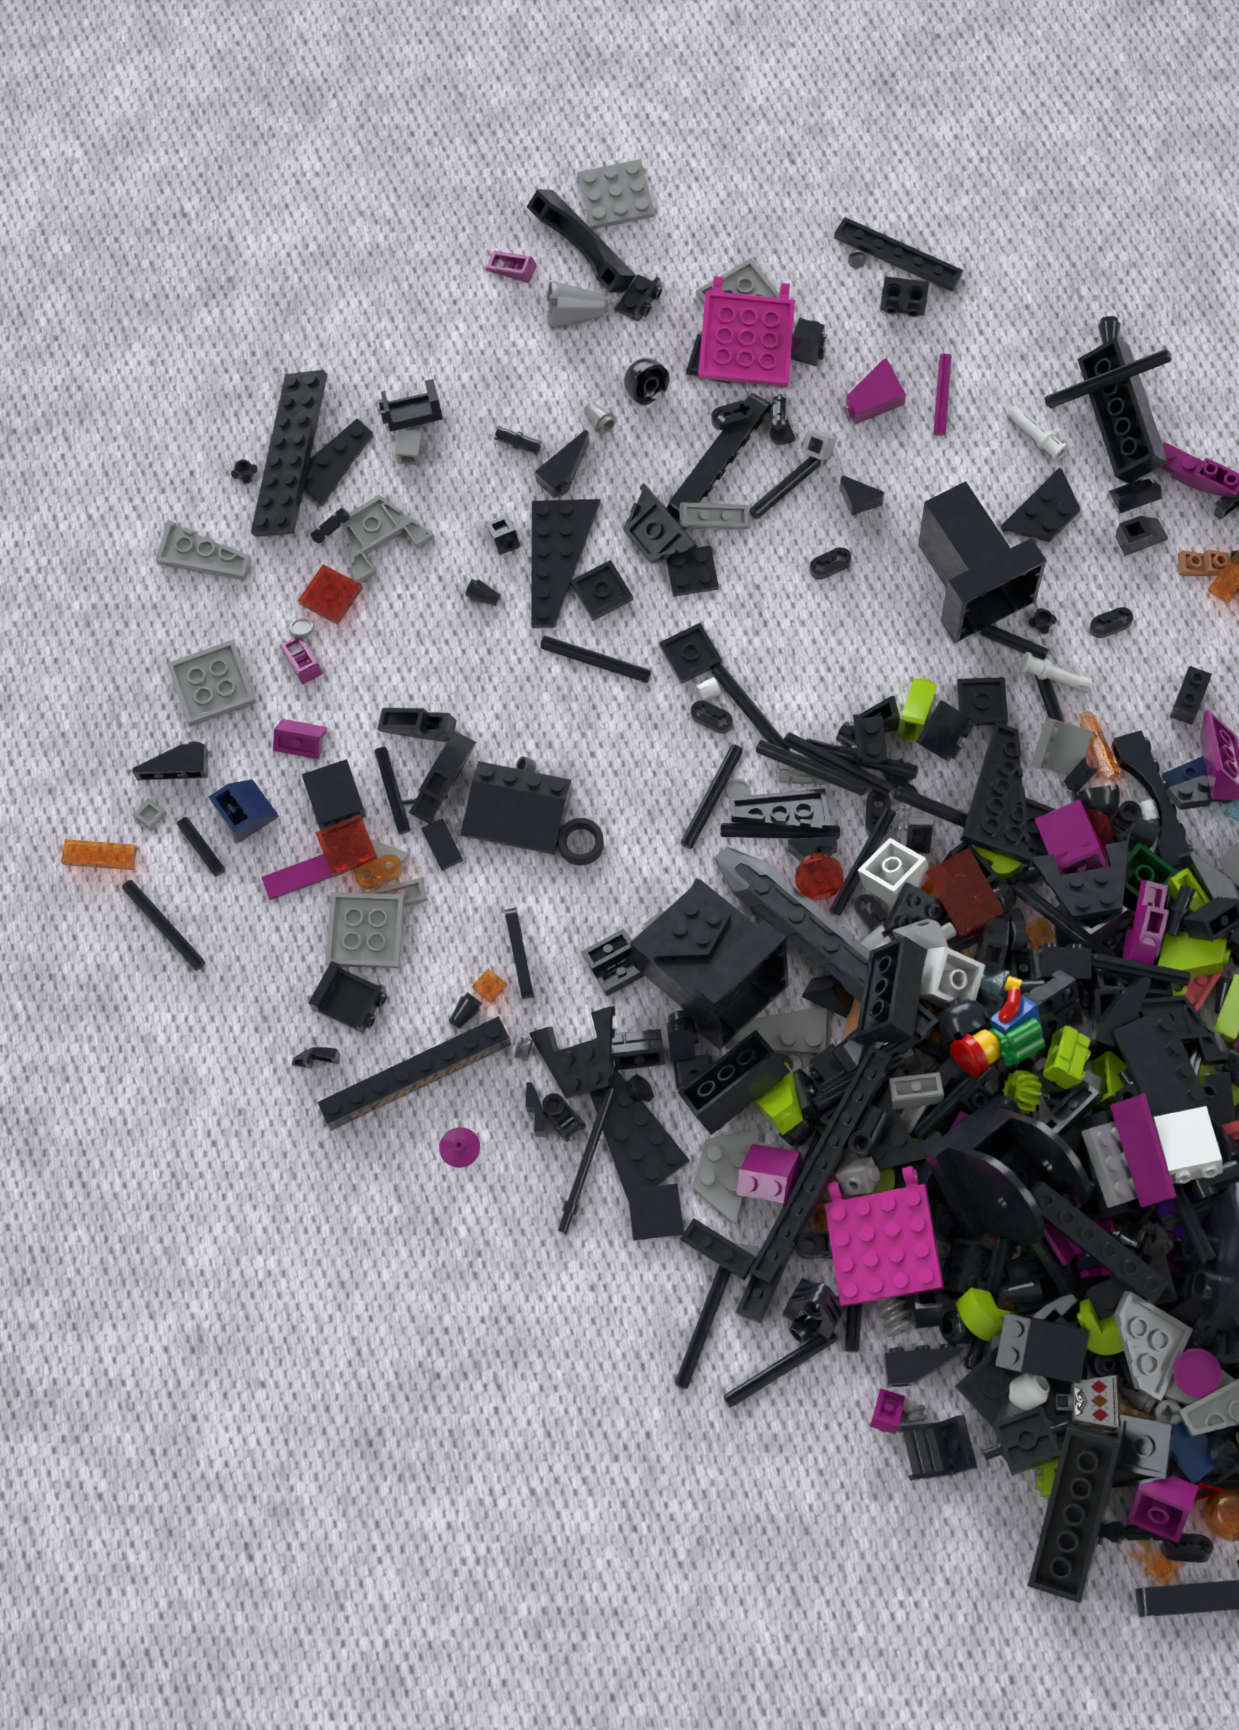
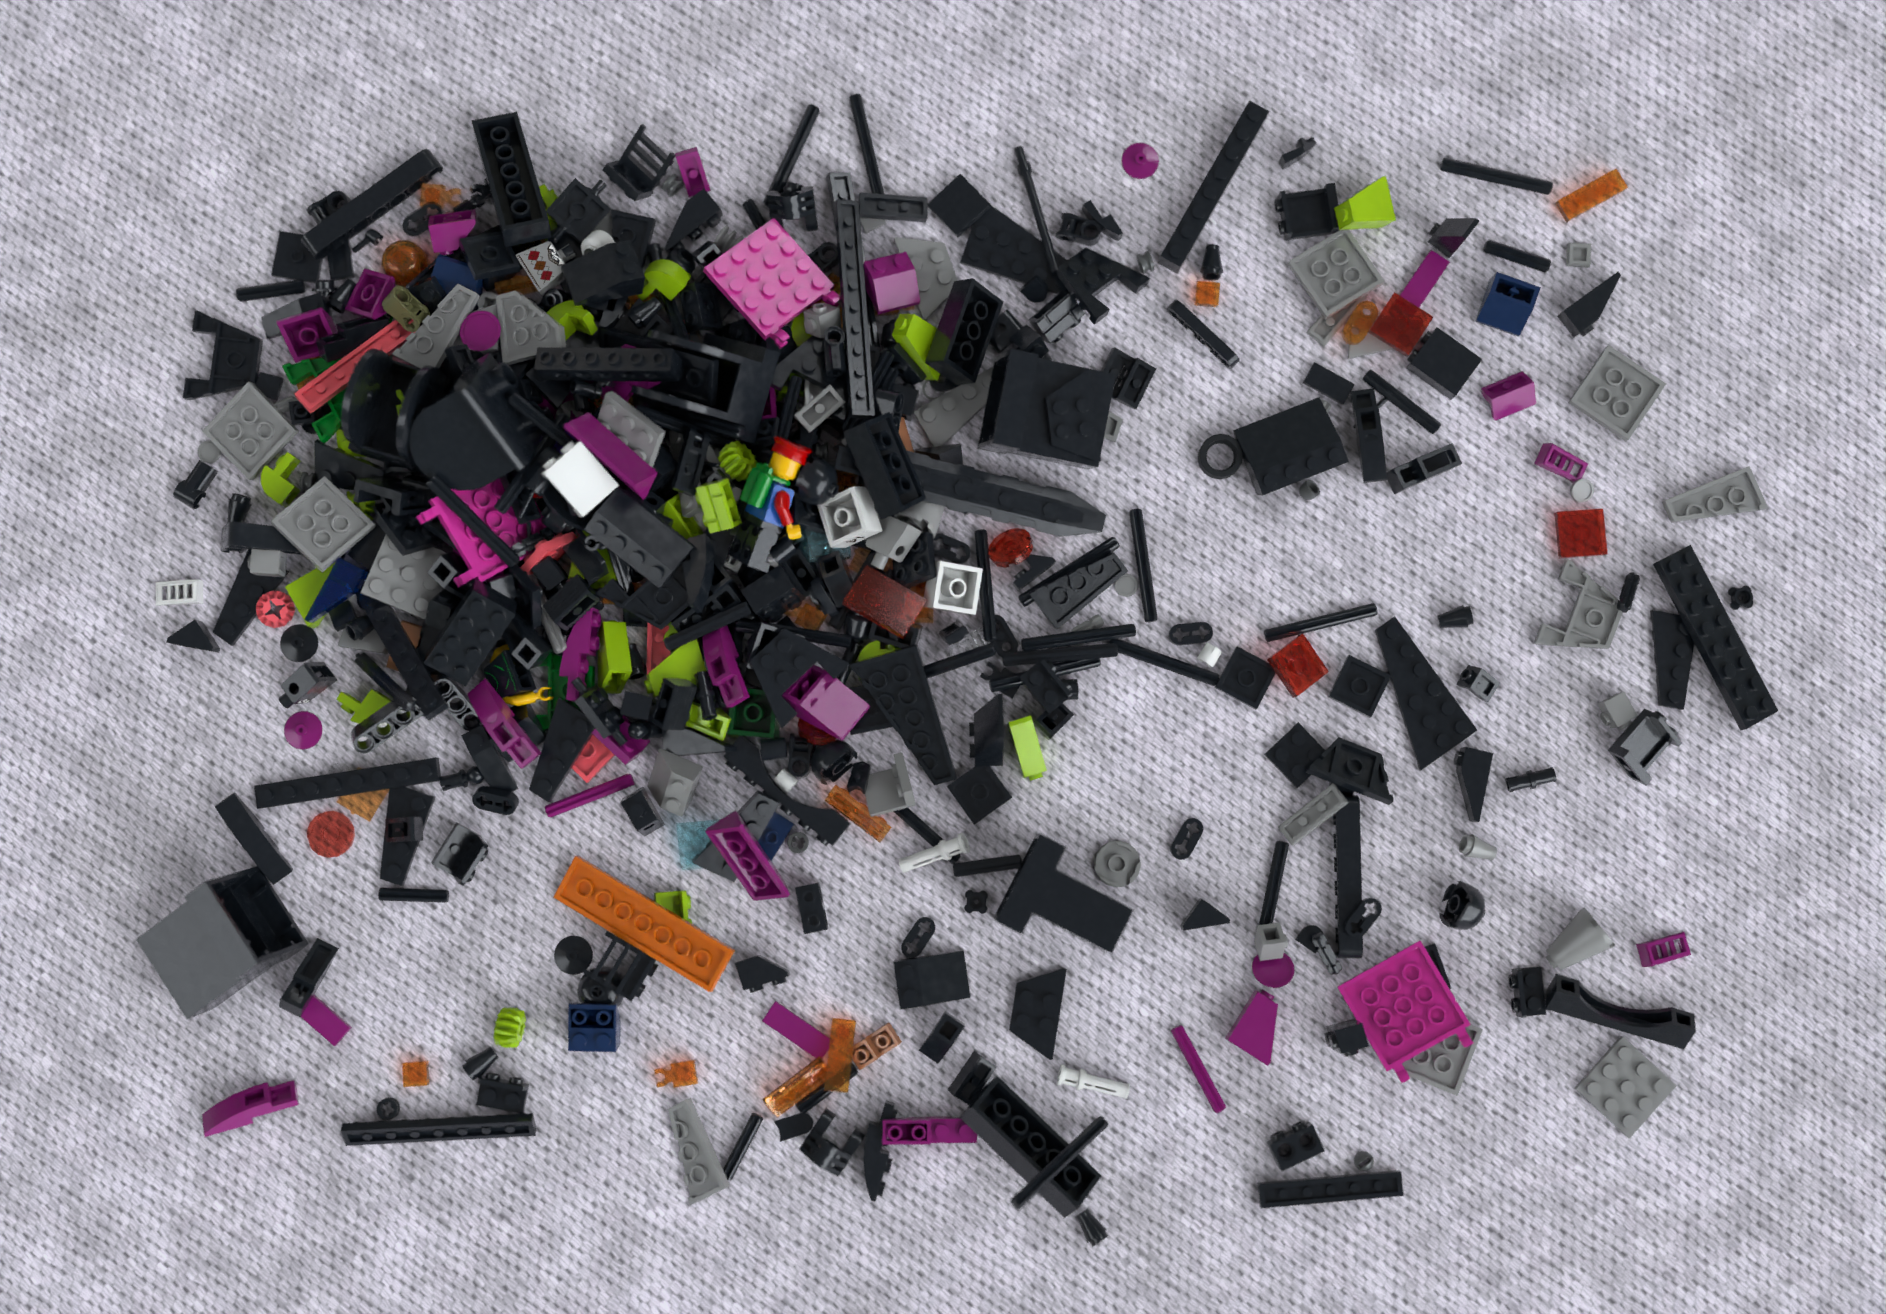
camera: 140 degrees right, 15 degrees up
(244, 888) = (1451, 234): none -> black slope
(296, 965) = (1367, 208): none -> lime slope
(641, 633) = (1297, 665): none -> clear red plate
(833, 422) = (1273, 972): none -> magenta piece
(902, 579) = (1109, 863): none -> light grey tile
(1123, 582) = (931, 979): none -> black slope
(1163, 761) = (796, 849): none -> dark grey bush

